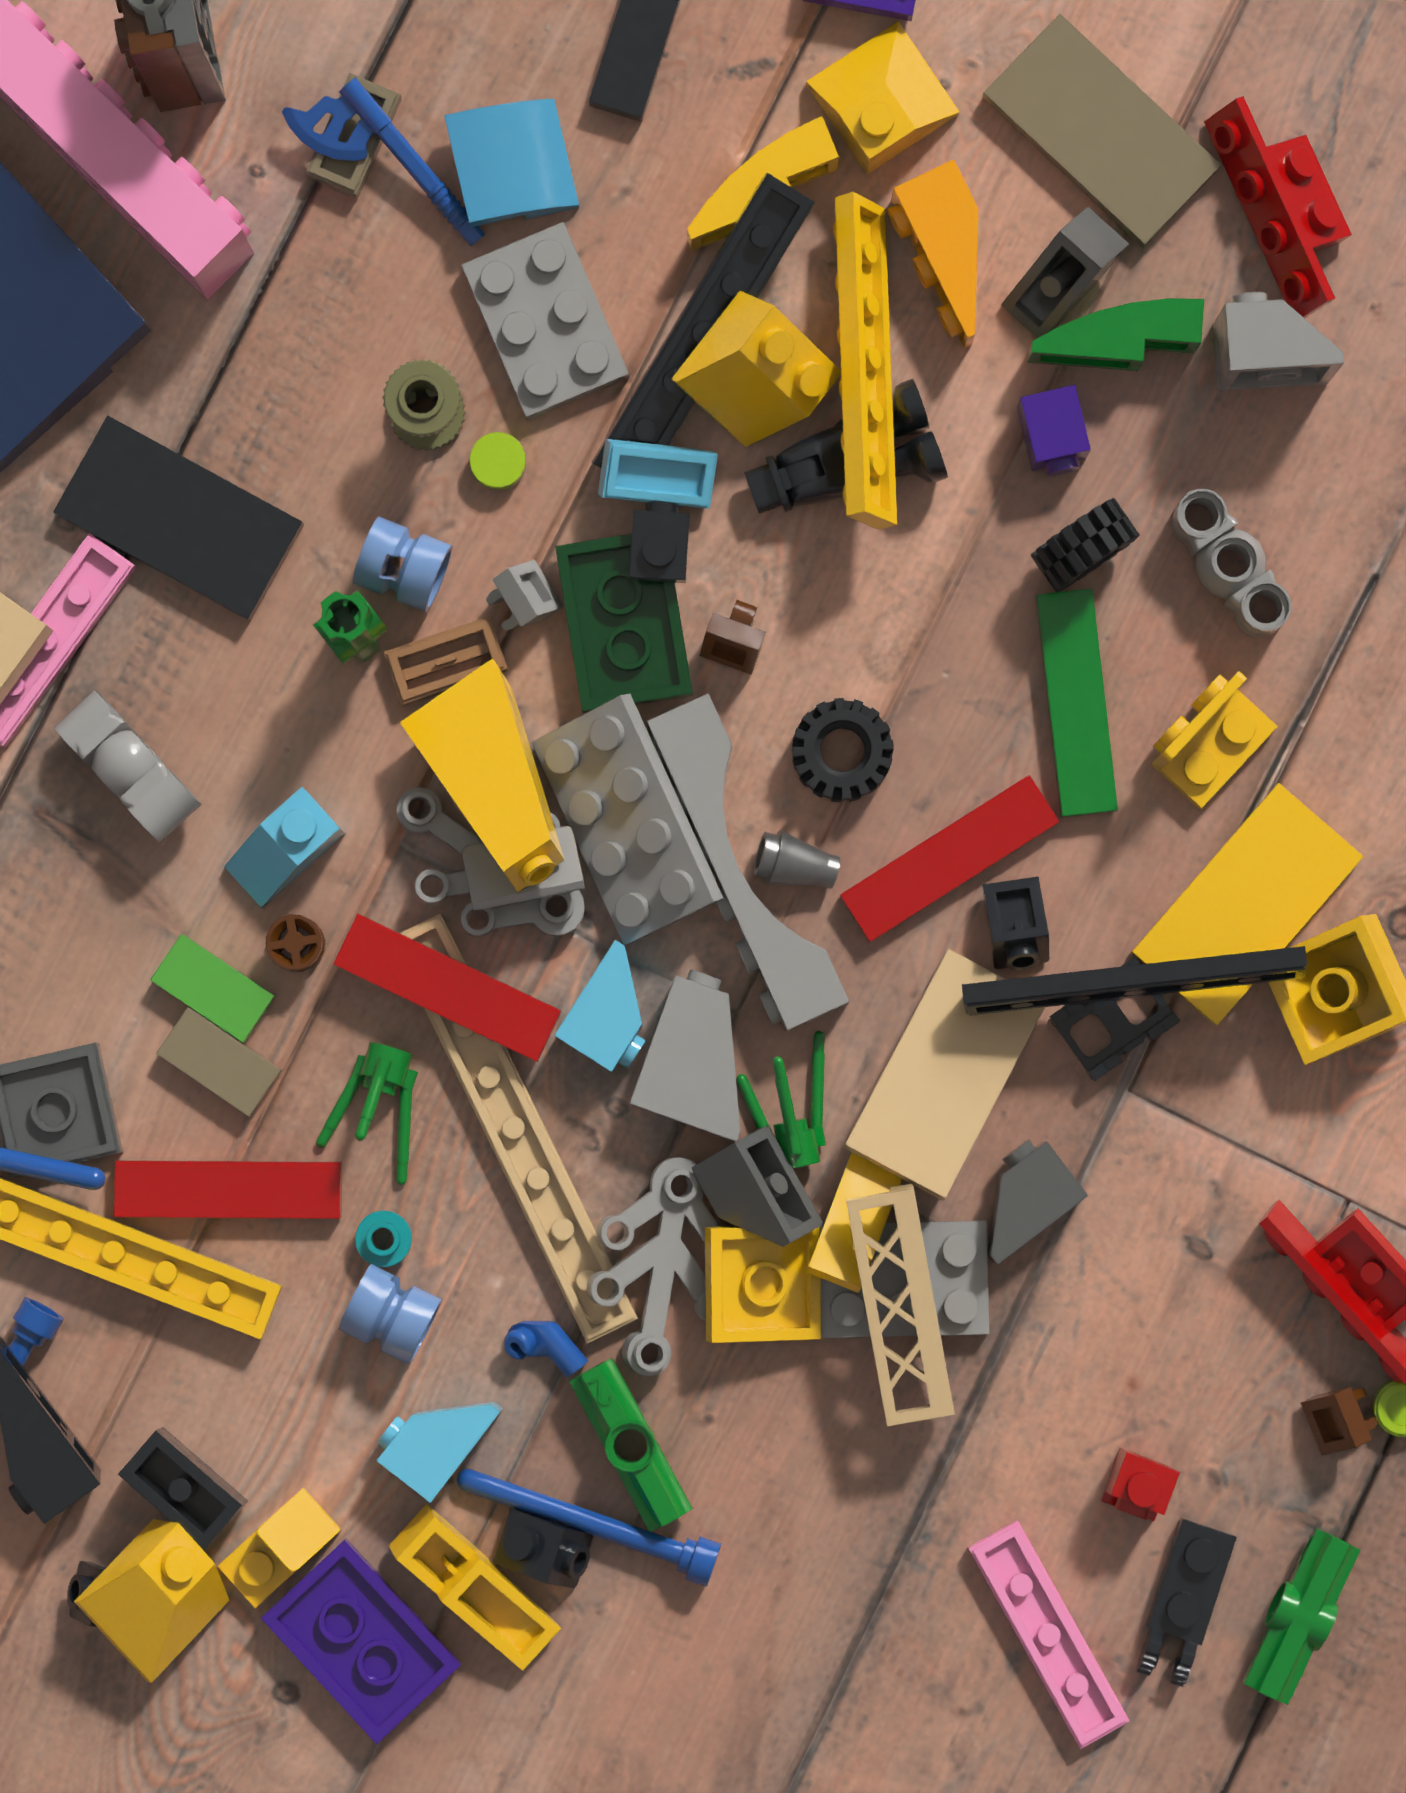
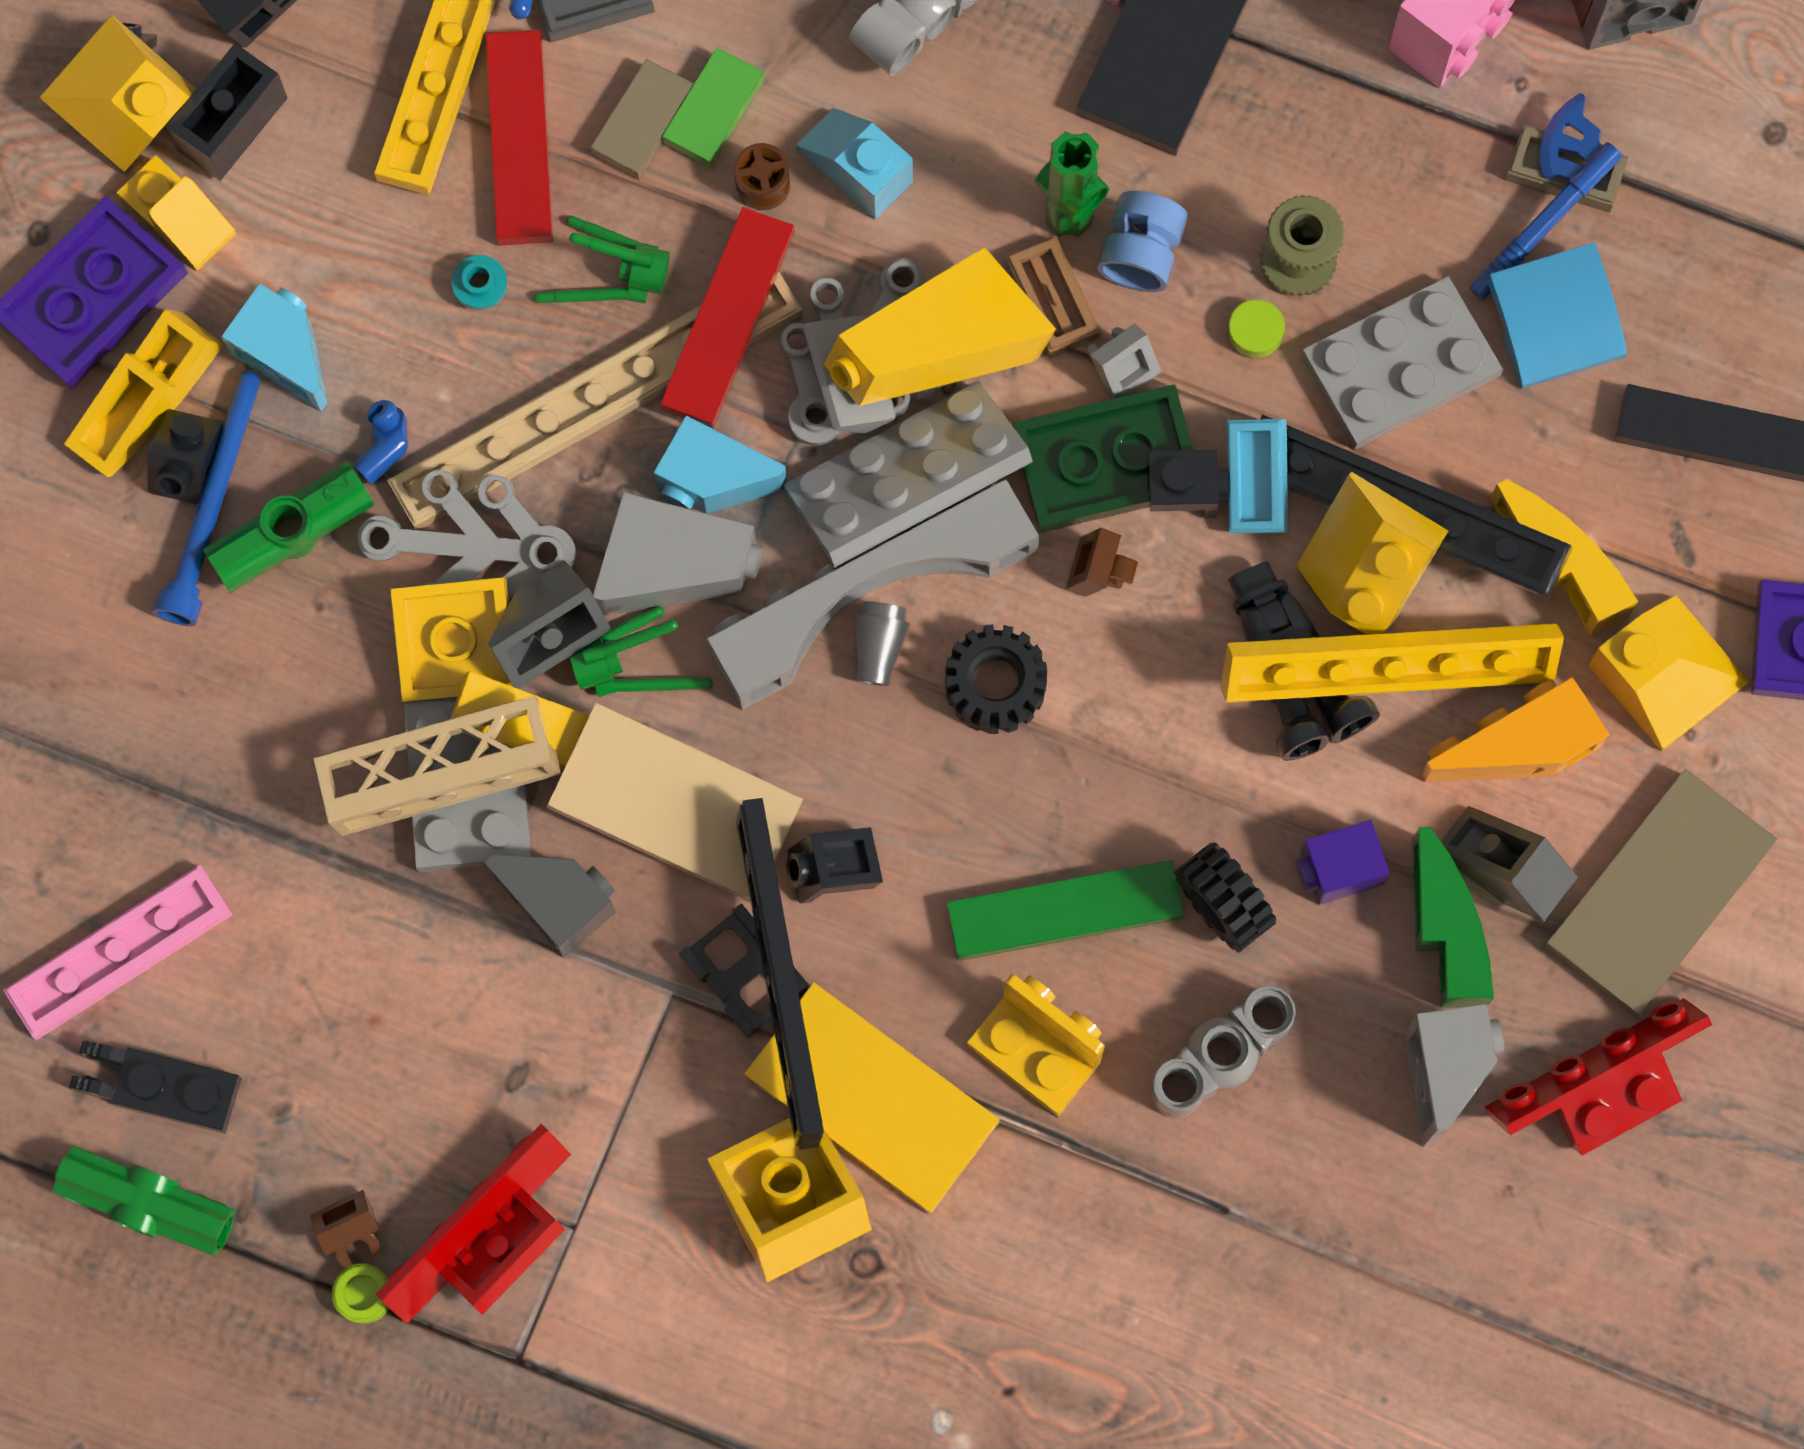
camera: 85 degrees right, 10 degrees down
(390, 1314) = (403, 293): medium blue wheel -> none
(949, 858) = (895, 795): red tile -> none
(1140, 1485) = (271, 1027): red brick -> none

